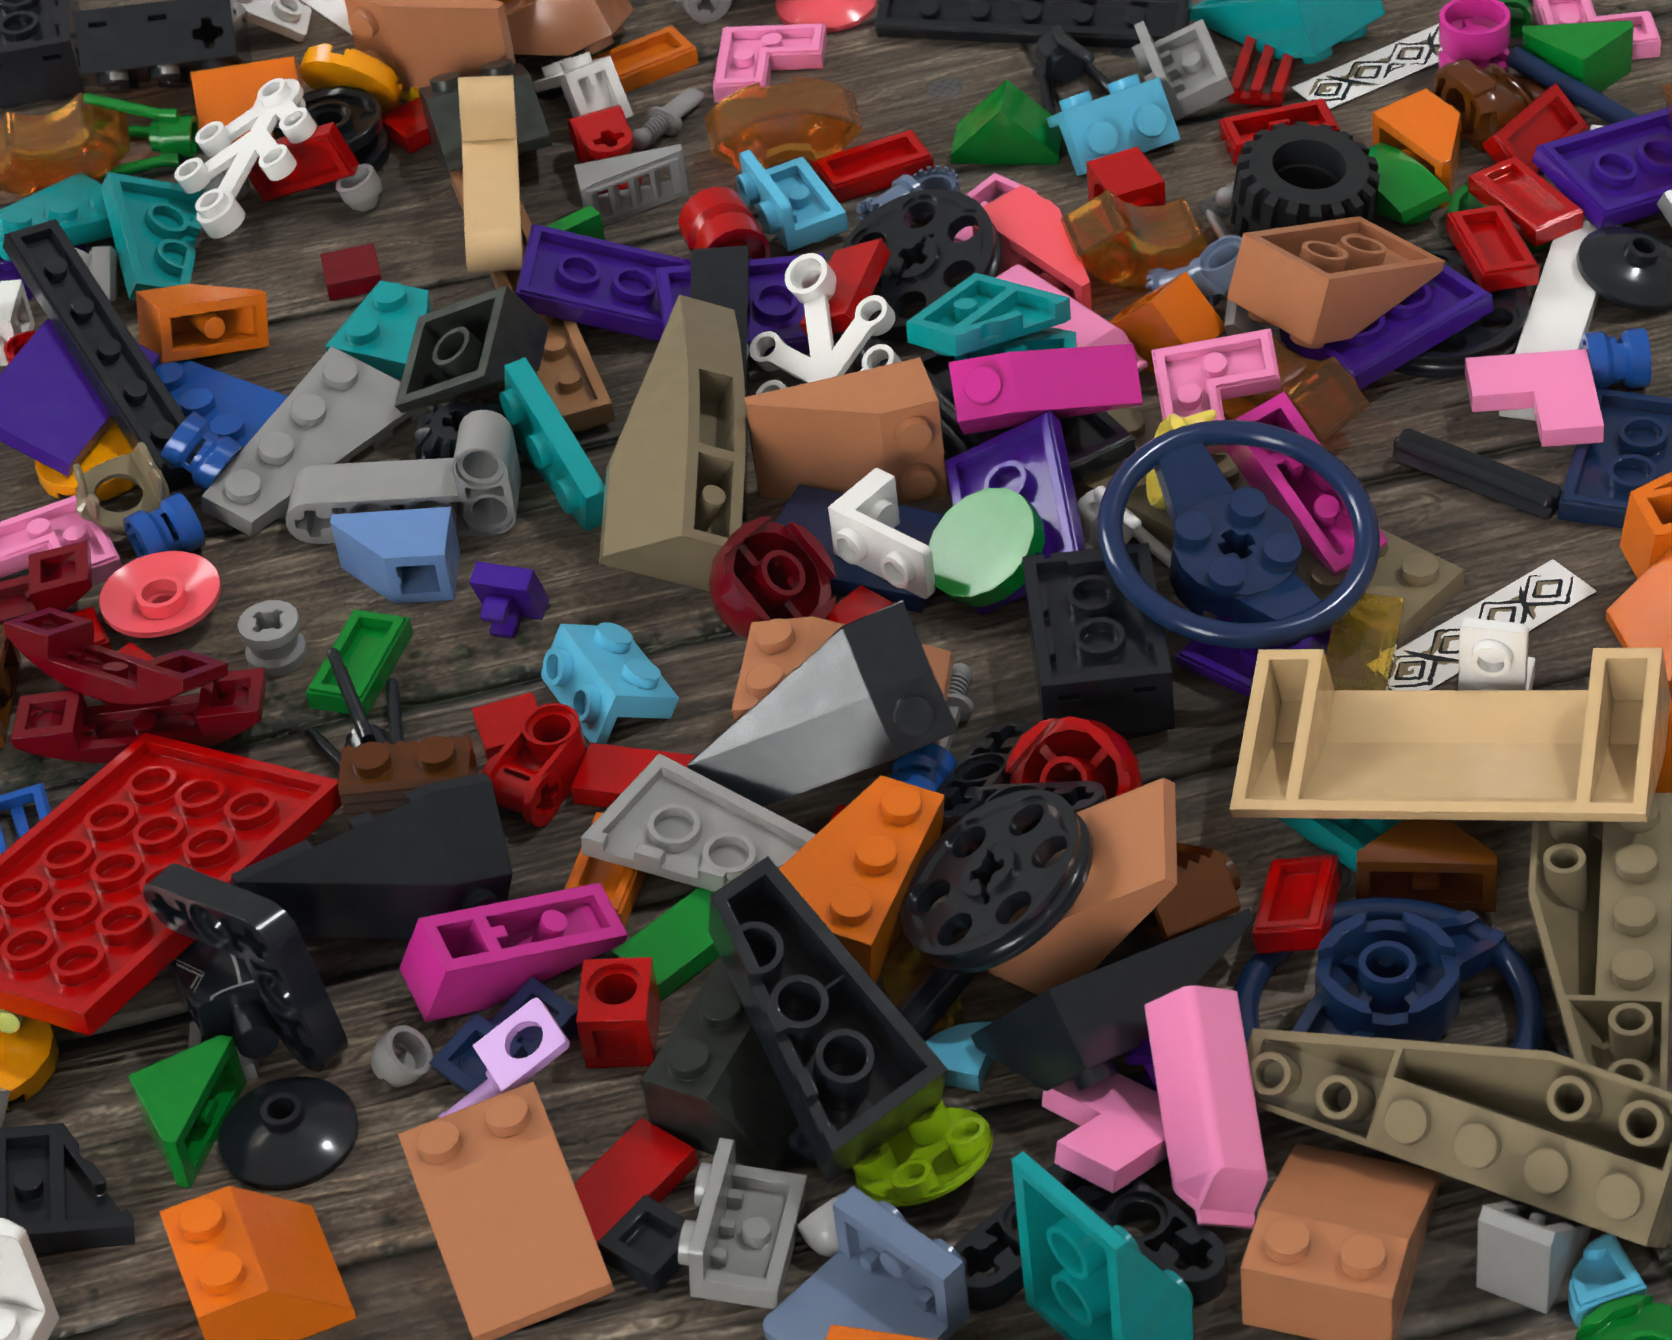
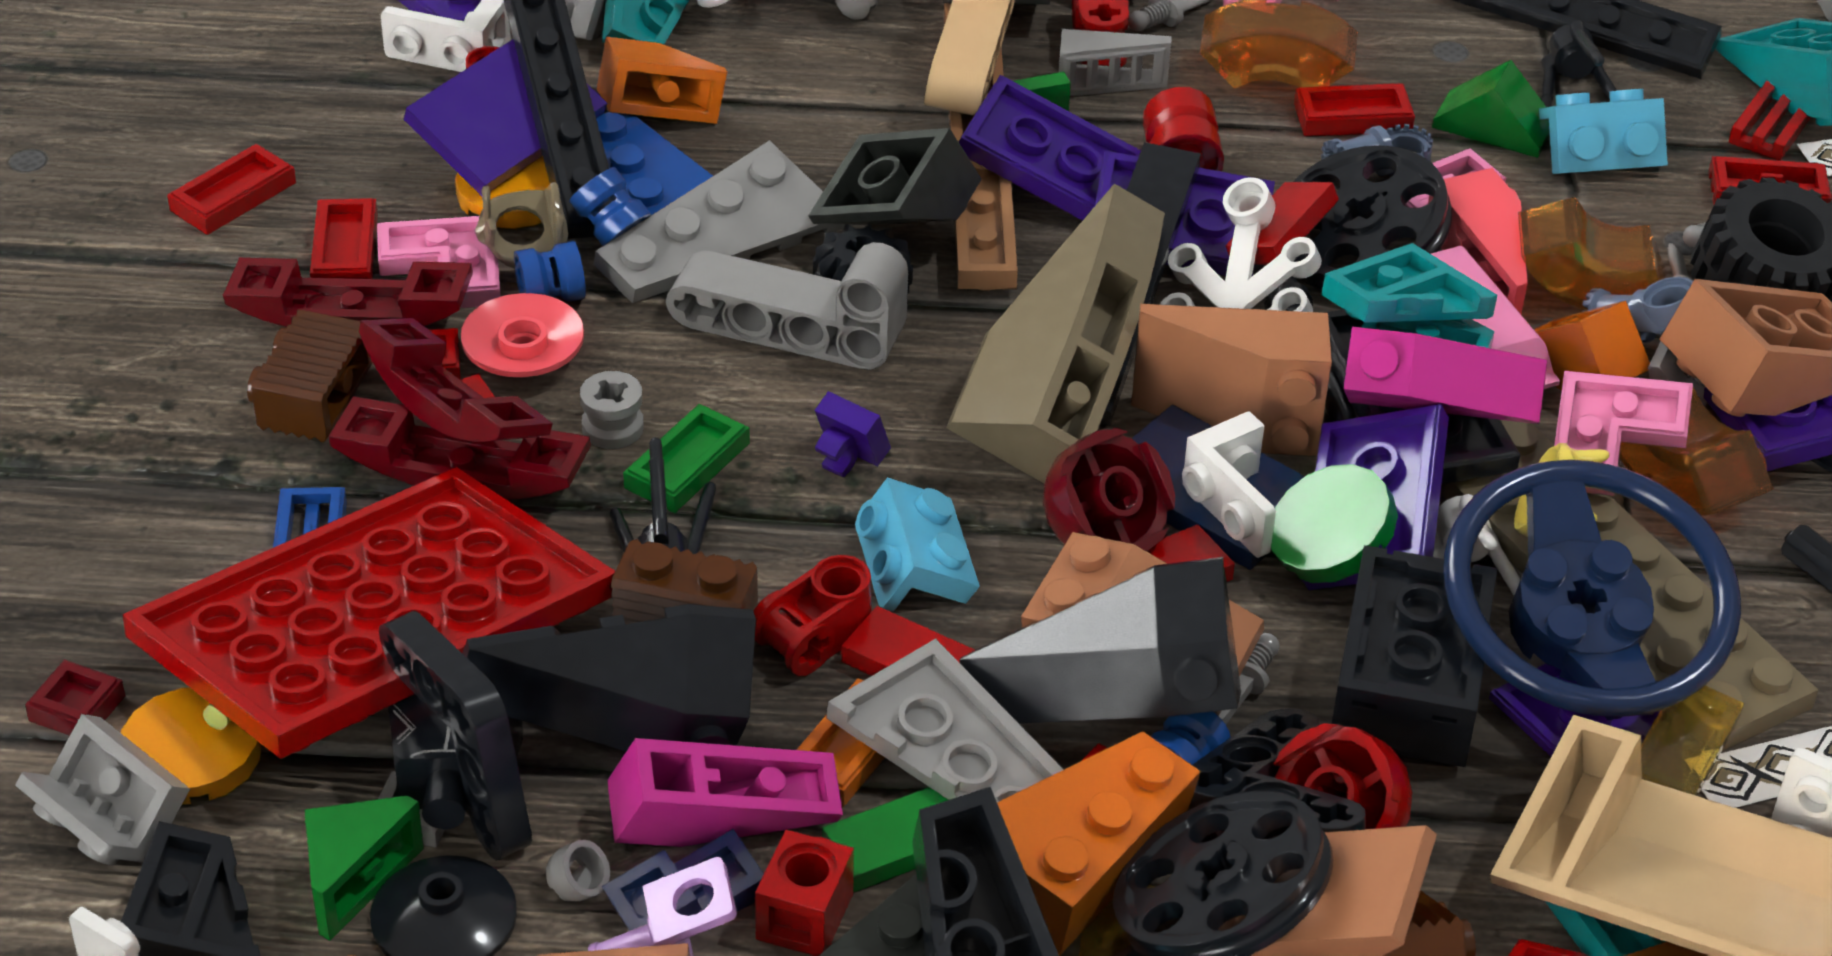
camera: 10 degrees right, 0 degrees up
(351, 271) = (819, 74): dark red tile -> none
(383, 327) = (826, 134): teal wing -> none
(401, 552) = (765, 360): medium blue slope -> none
(500, 720) = (798, 555): red tile -> none
(550, 445) = (942, 295): teal wing -> none
(790, 201) = (1260, 121): medium azure bracket -> none
(1128, 177) = (1599, 189): red brick -> none
(1186, 66) = (1694, 95): light grey bracket -> none
(1297, 490) = (1667, 559): dark pink slope -> none

